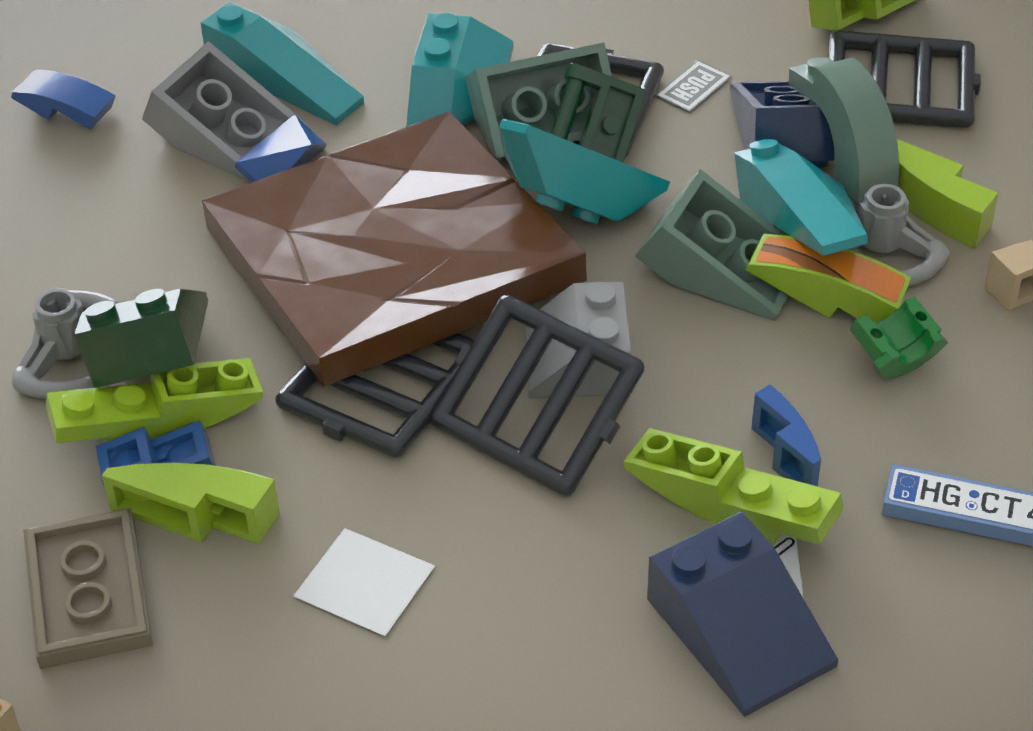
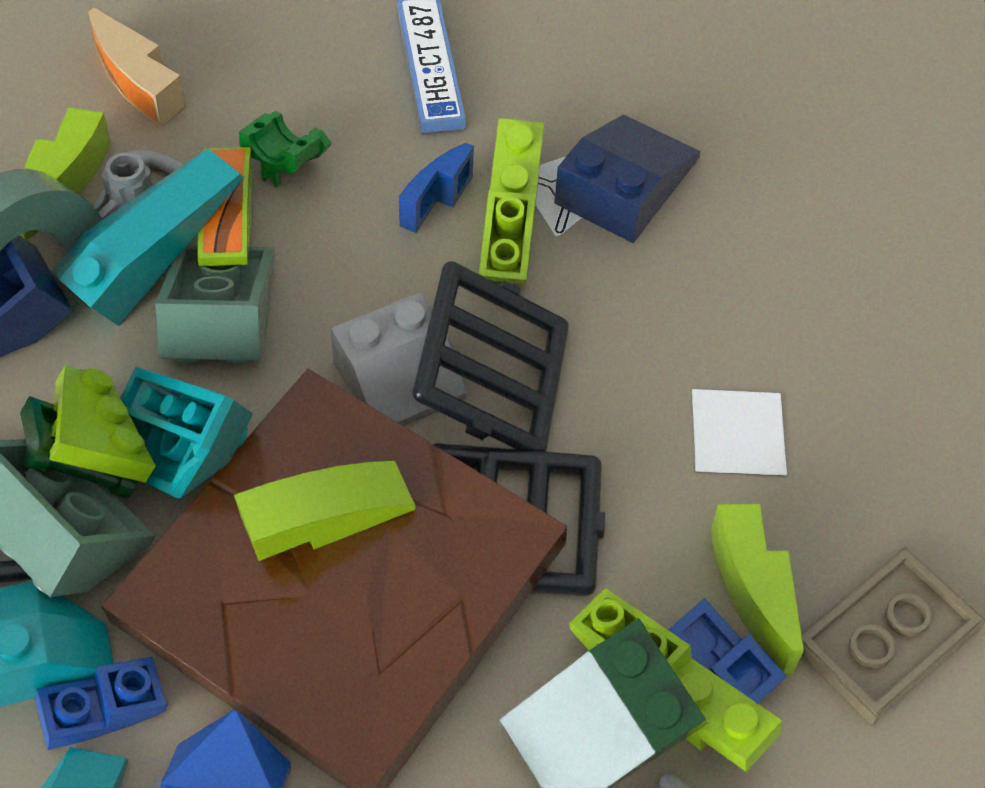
camera: 120 degrees left, 10 degrees up
(384, 108) = (101, 705): none -> blue slope
(431, 210) = (322, 506): none -> lime slope
(609, 122) = (96, 427): none -> lime wing

